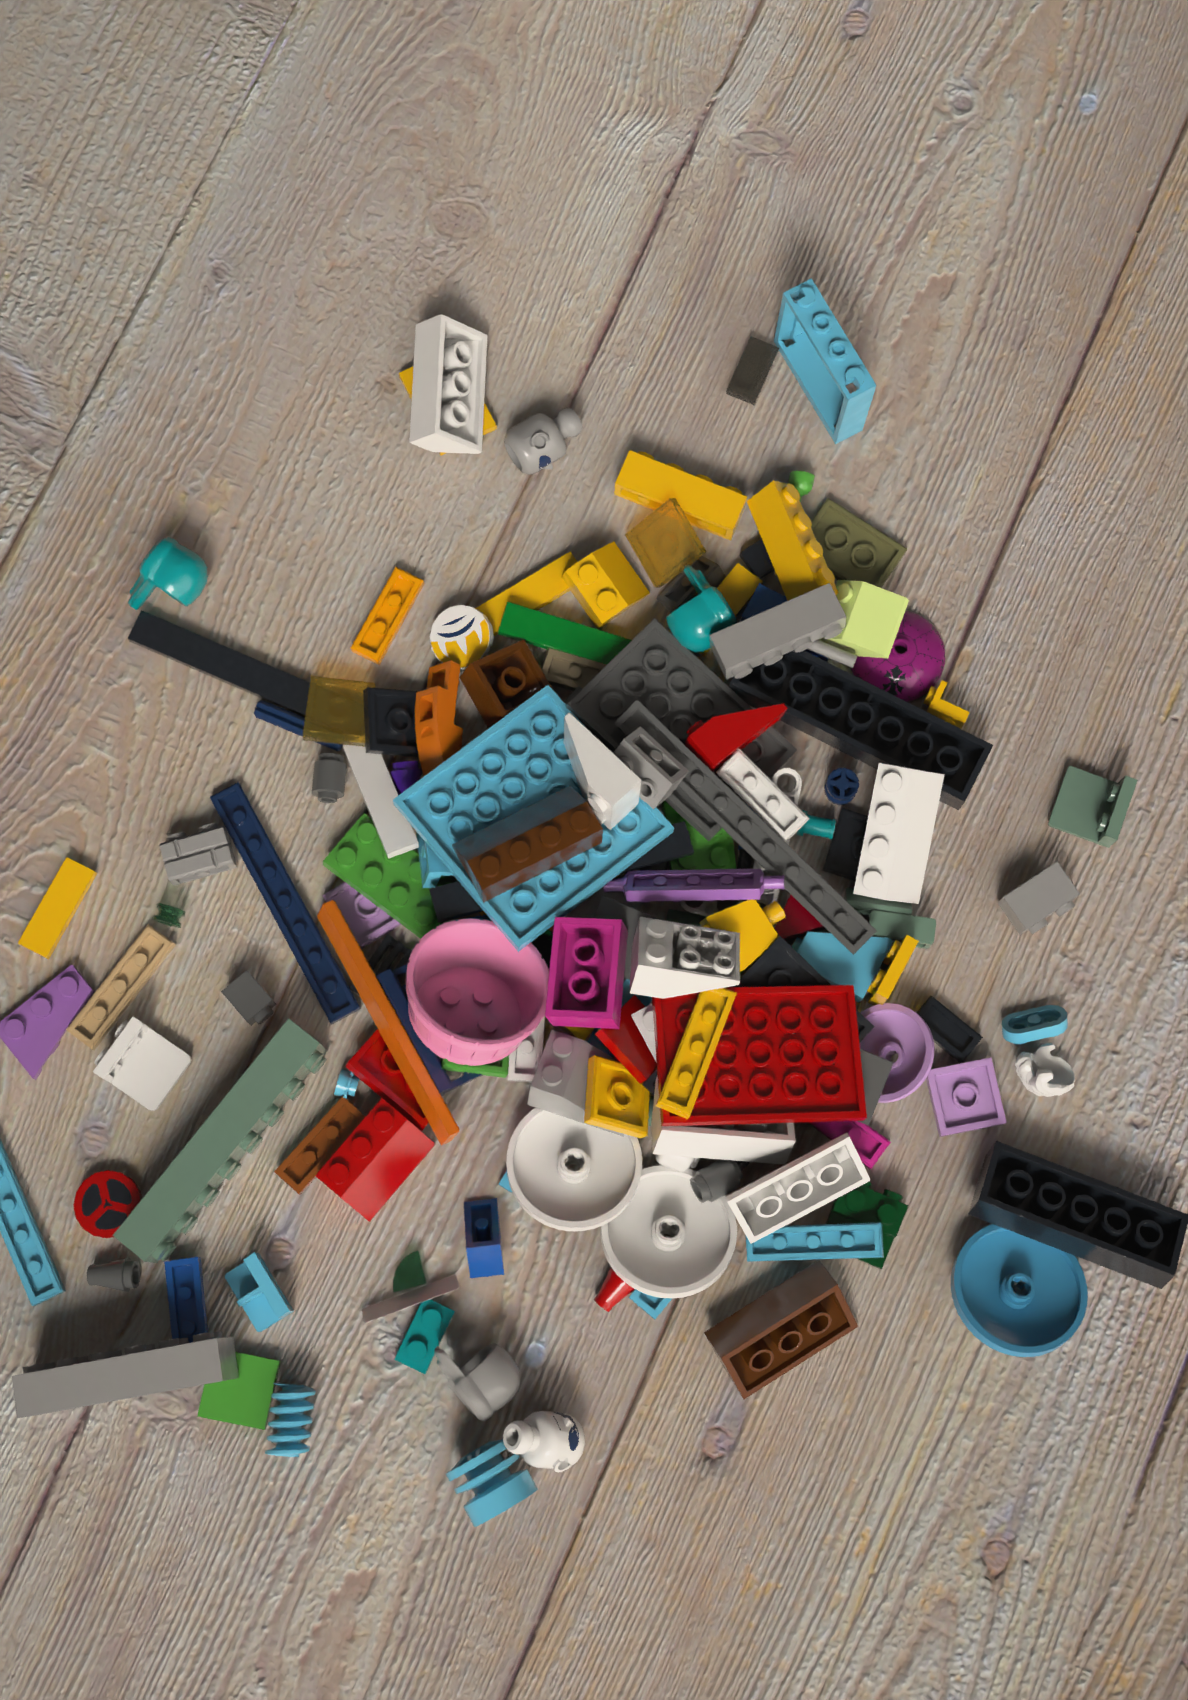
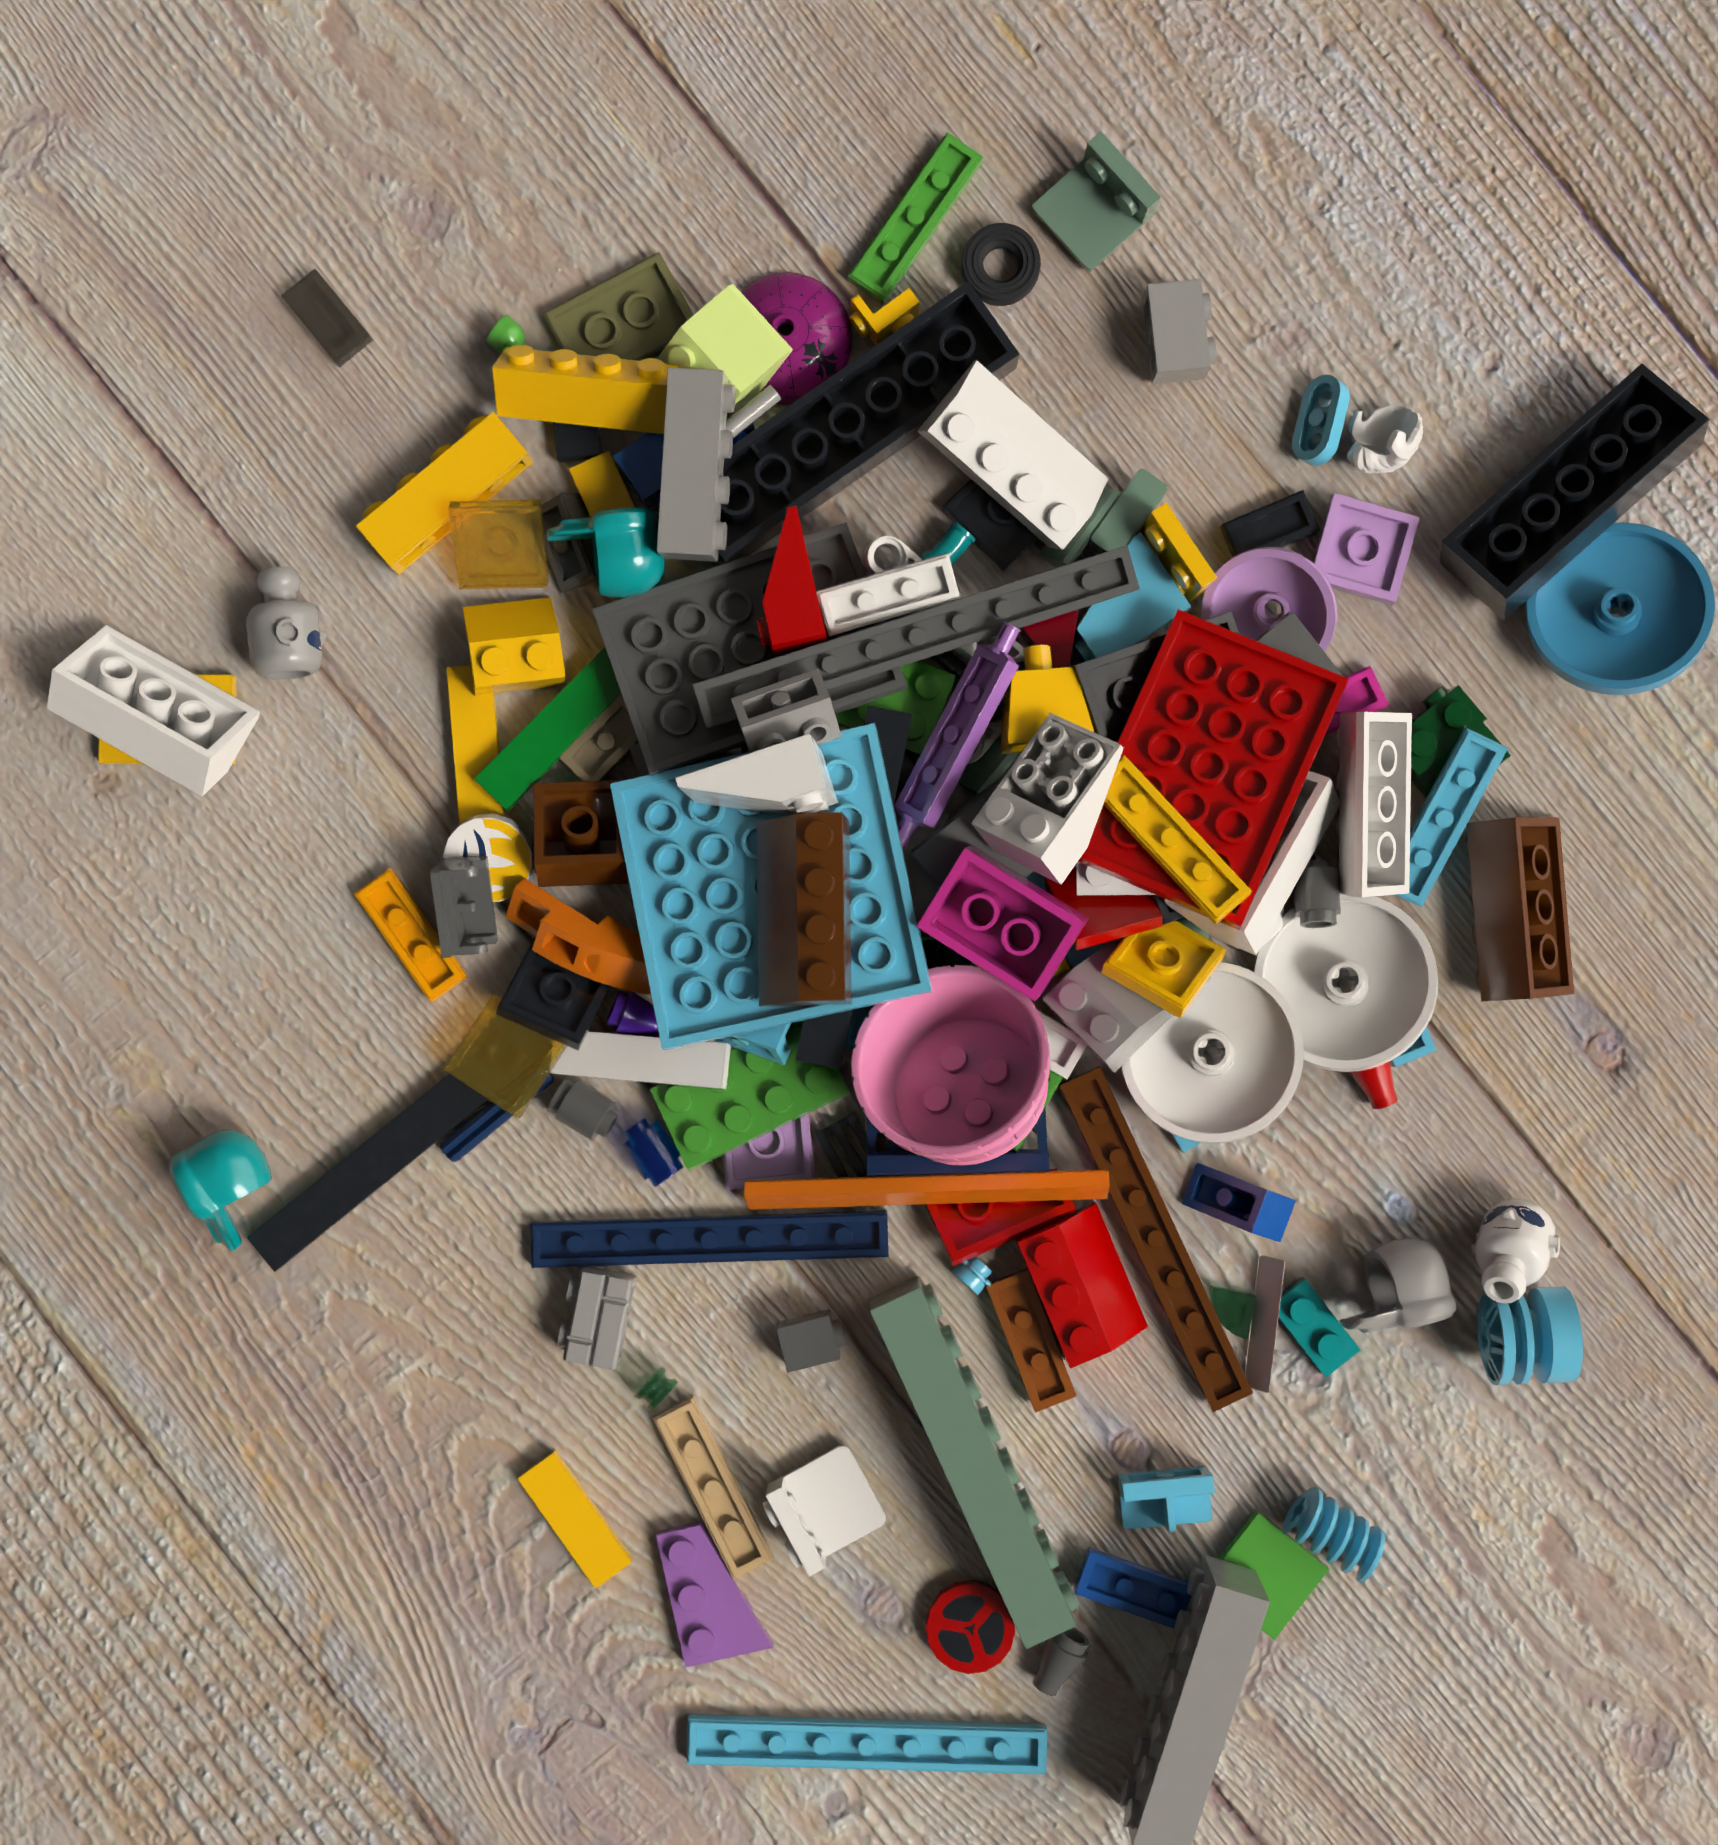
camera: 60 degrees left, 10 degrees up
(323, 834) = (651, 1151): none -> clear blue brick
(422, 635) = (463, 905): none -> dark grey hinge
(430, 1195) = (1156, 1239): none -> reddish brown plate
(824, 361) = (298, 196): medium azure window -> none
(842, 779) = (919, 485): dark blue wheel -> none
(1019, 697) = (915, 218): none -> bright green tile
(1029, 748) = (1001, 237): none -> black tyre

